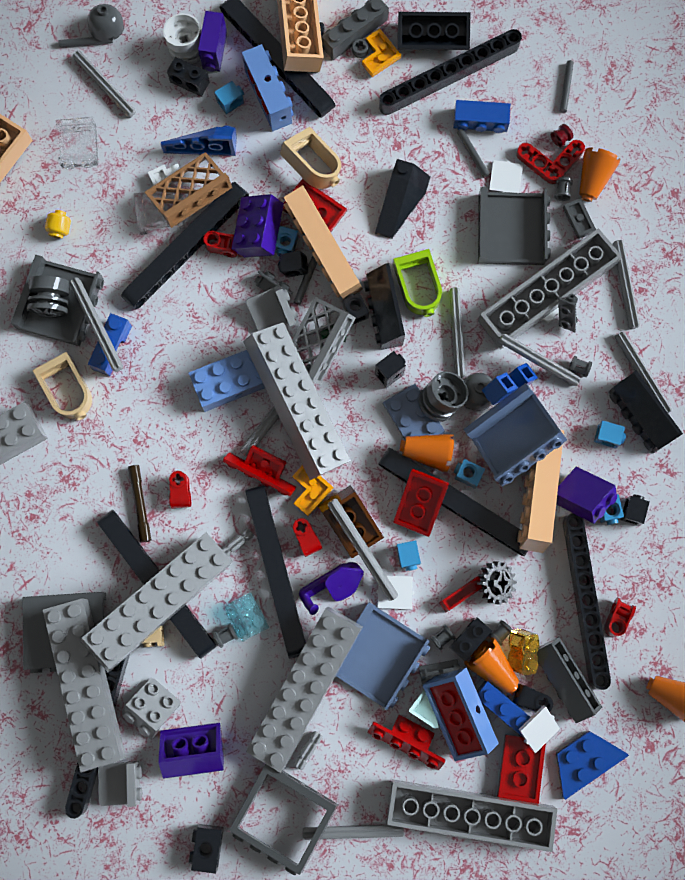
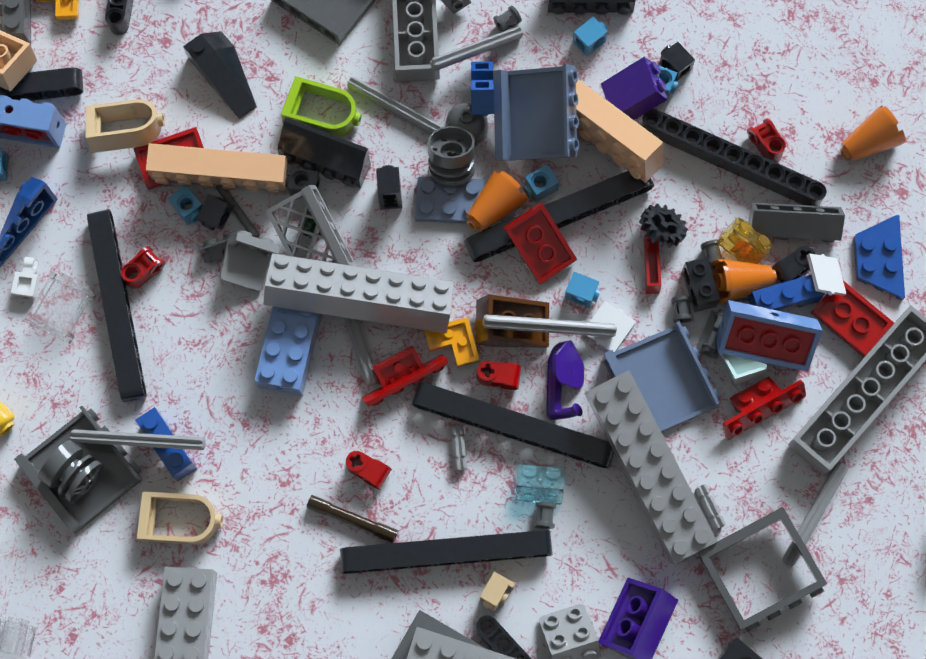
camera: 55 degrees left, 5 degrees down
(156, 602) = (470, 556): light grey brick -> none
(196, 198) = (80, 256): medium nougat fence -> none
(257, 226) = (151, 219): dark purple brick -> none
(360, 42) = (40, 17): dark grey bush -> none

